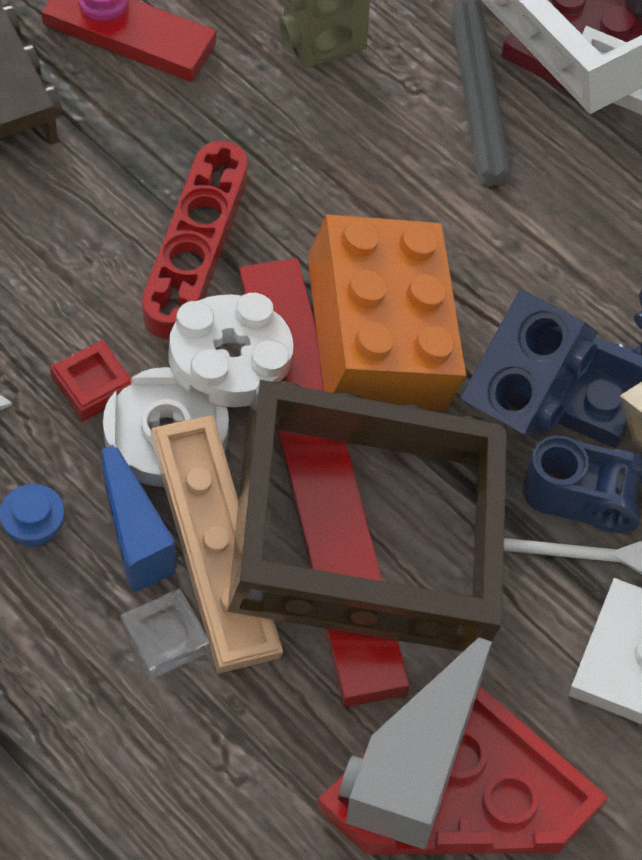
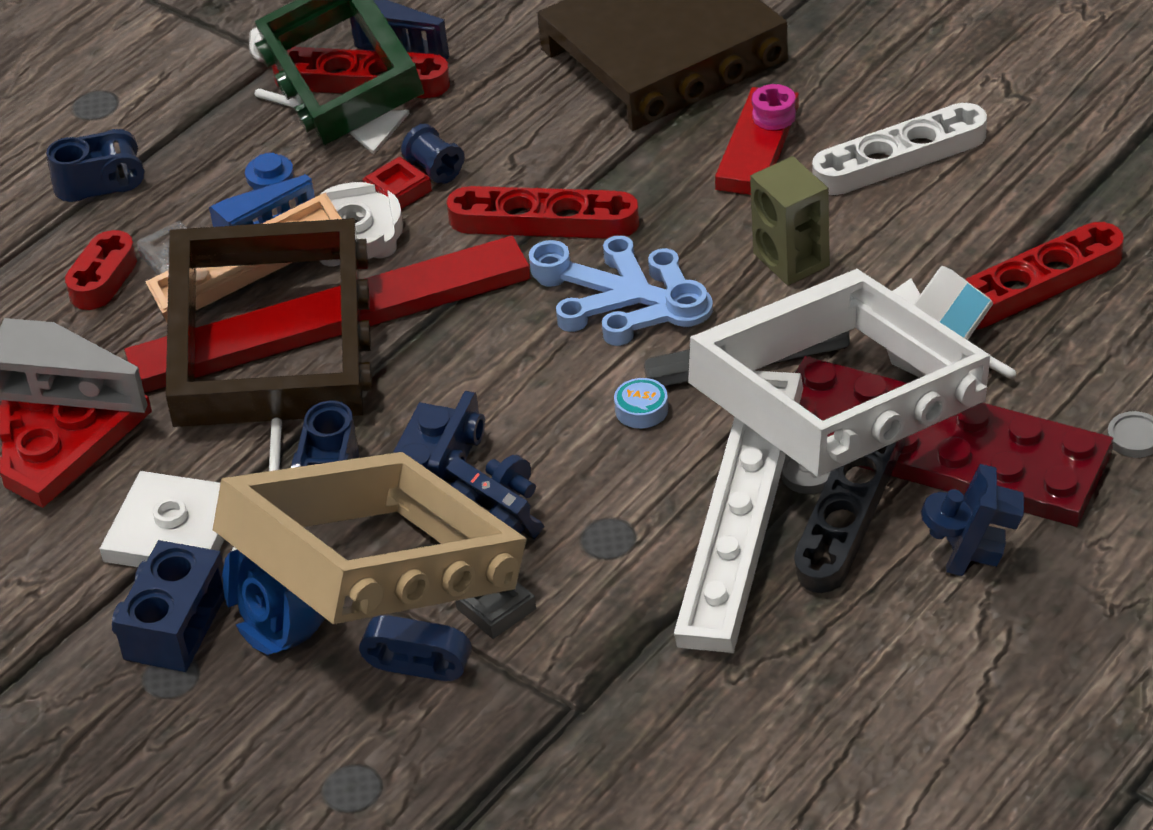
camera: 90 degrees right, 15 degrees down
(63, 328) = (437, 157): none -> dark blue bush
(176, 713) = (105, 259): none -> red beam
(236, 320) = (428, 210): white plate -> none
(347, 174) = (682, 304): none -> light blue plant
(386, 311) = (465, 307): orange brick -> none
(515, 358) = (416, 385): dark blue brick -> none
(535, 192) = (641, 403): none -> light blue tile

